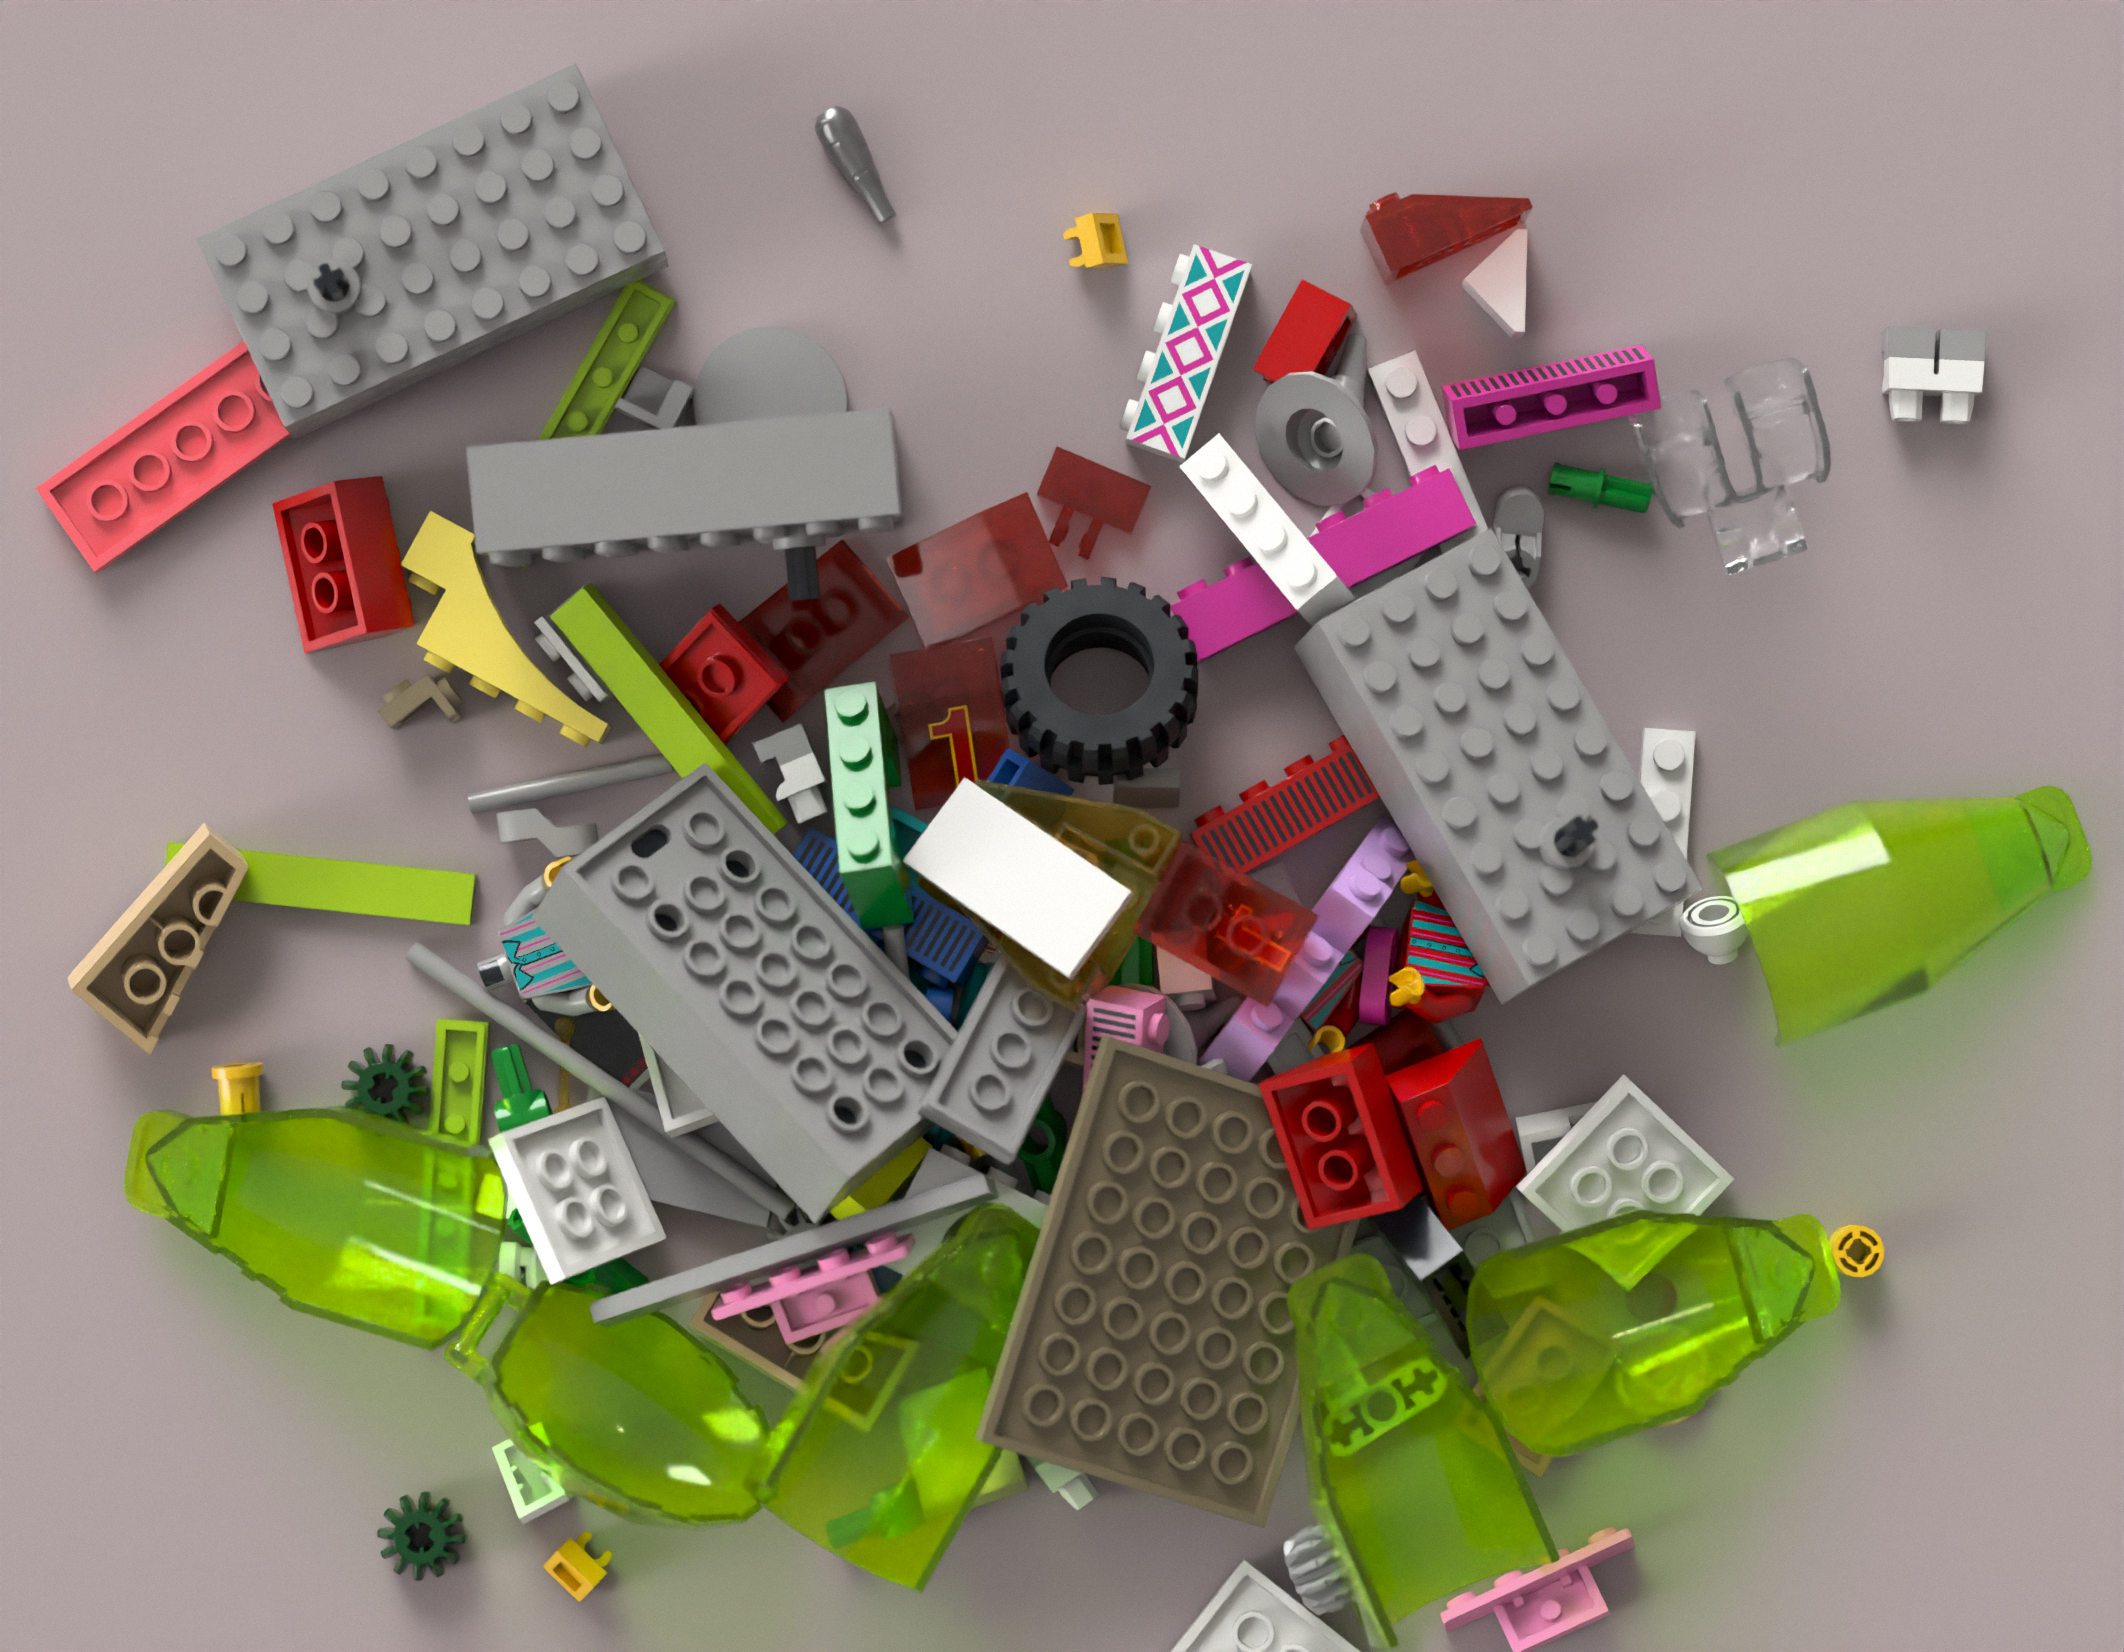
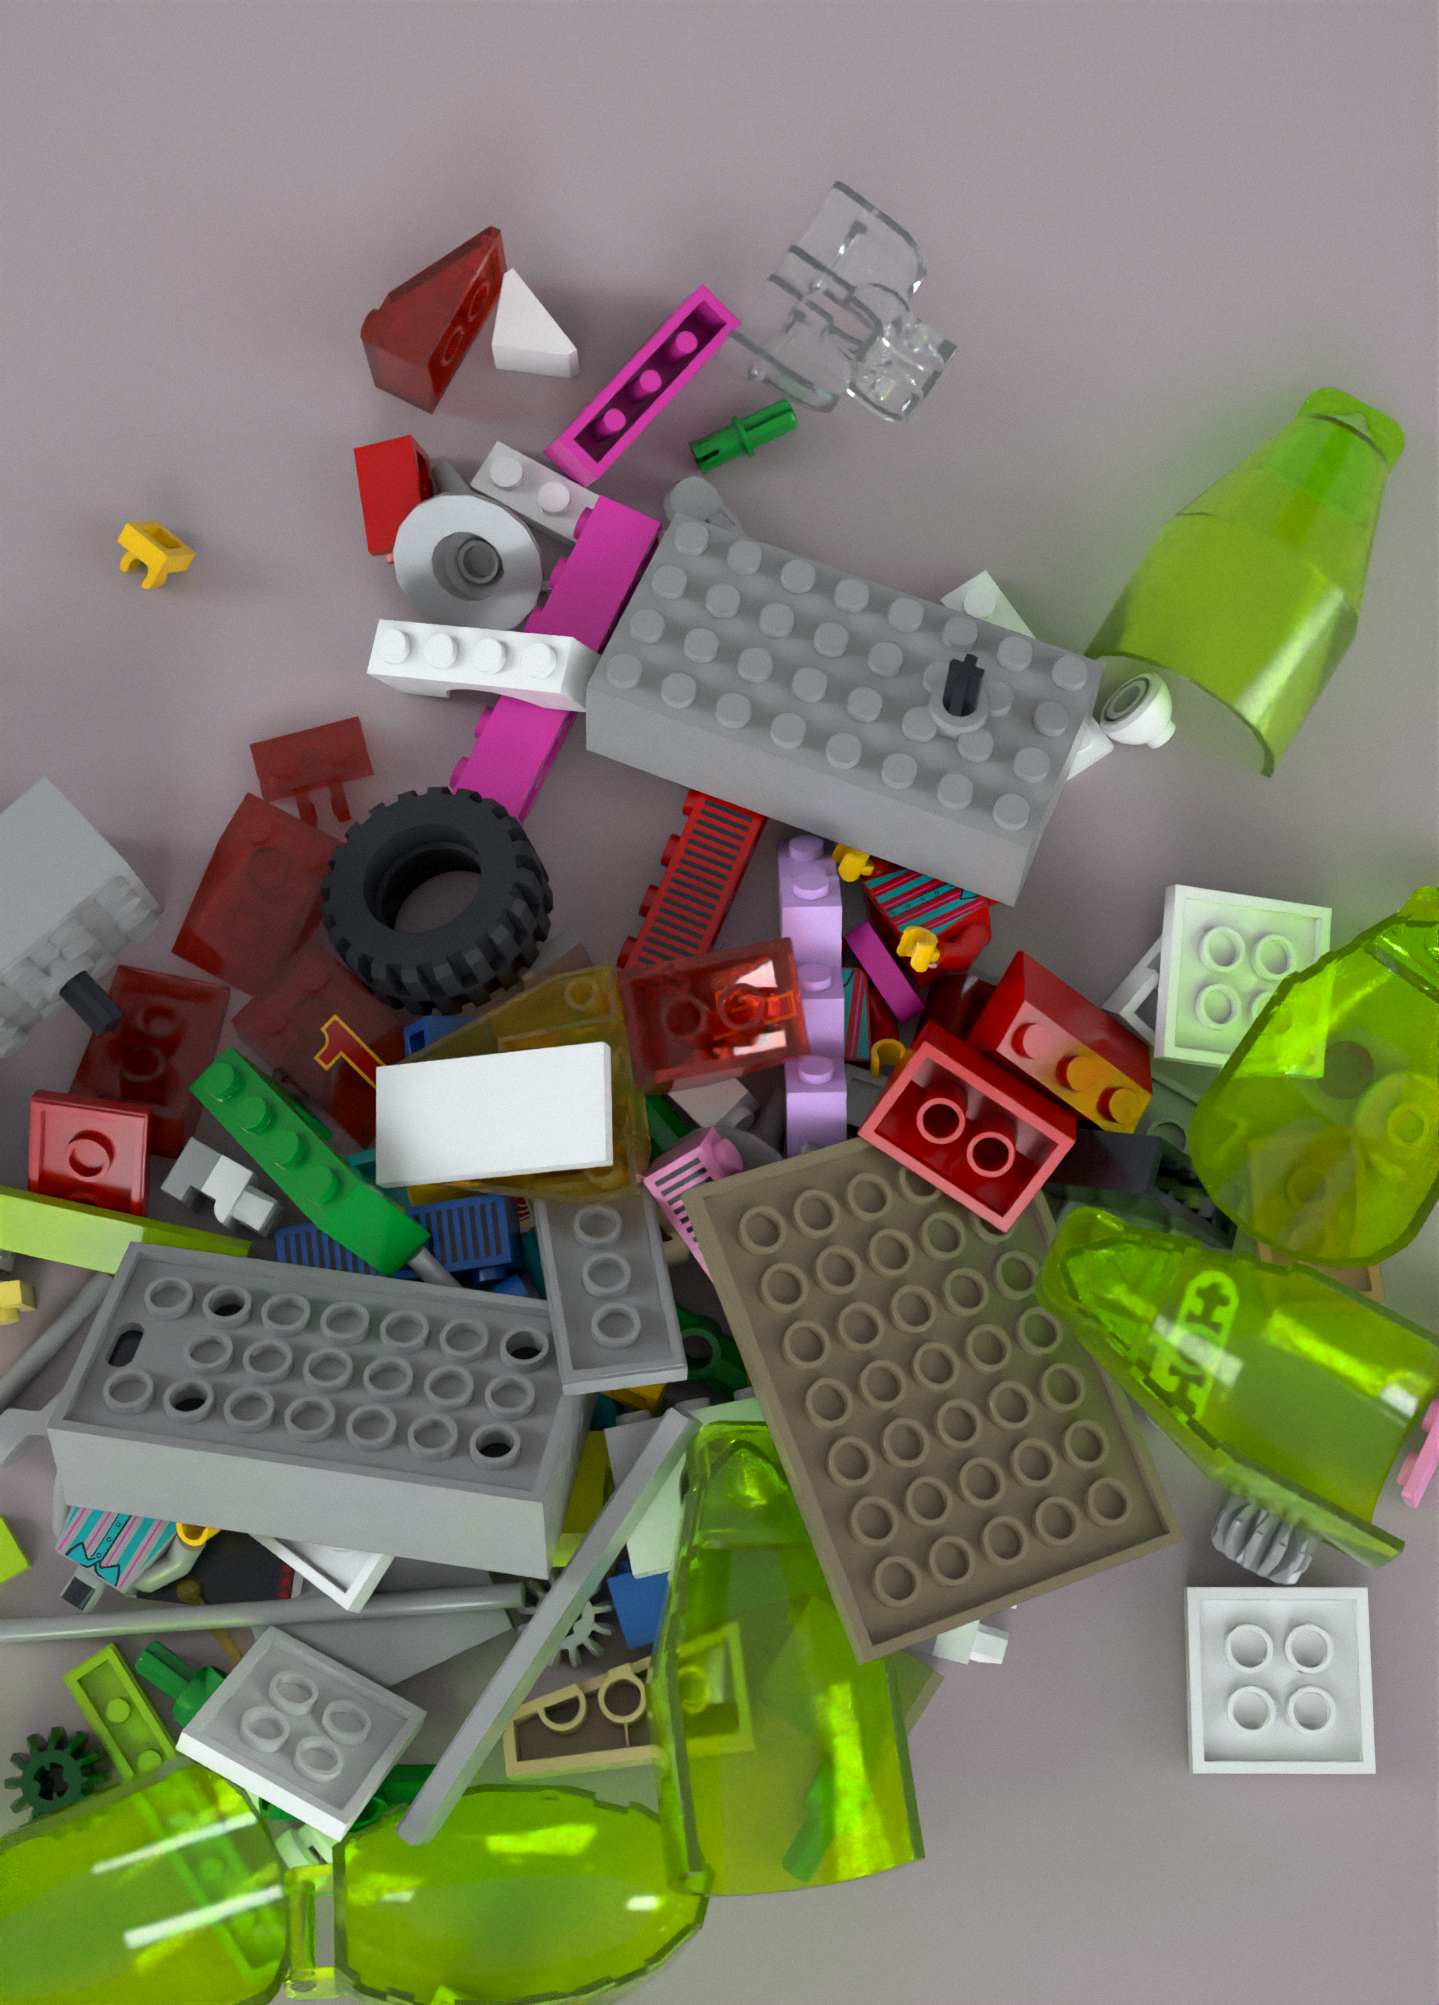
camera: 35 degrees left, 10 degrees down
(820, 1295) = (607, 1650): bright pink bracket -> none
(1187, 354) = (303, 583): brick -> none
(1933, 365) = (937, 138): white hips -> none

